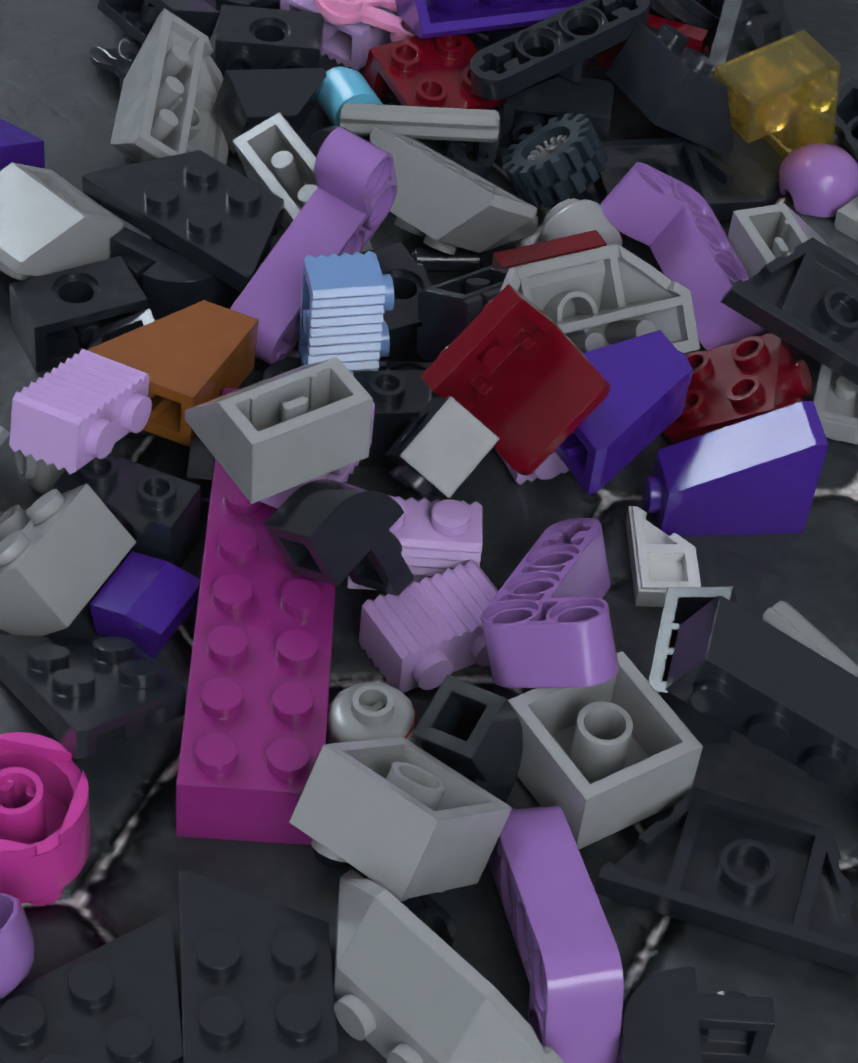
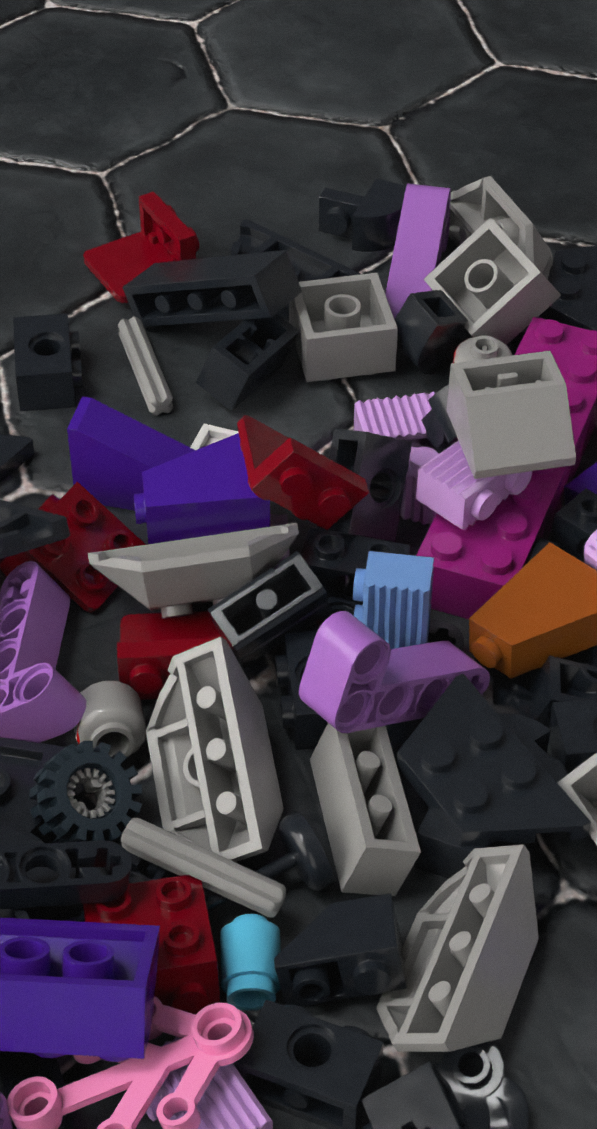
camera: 155 degrees left, 0 degrees up
(550, 613) = (353, 358): medium lavender beam -> none

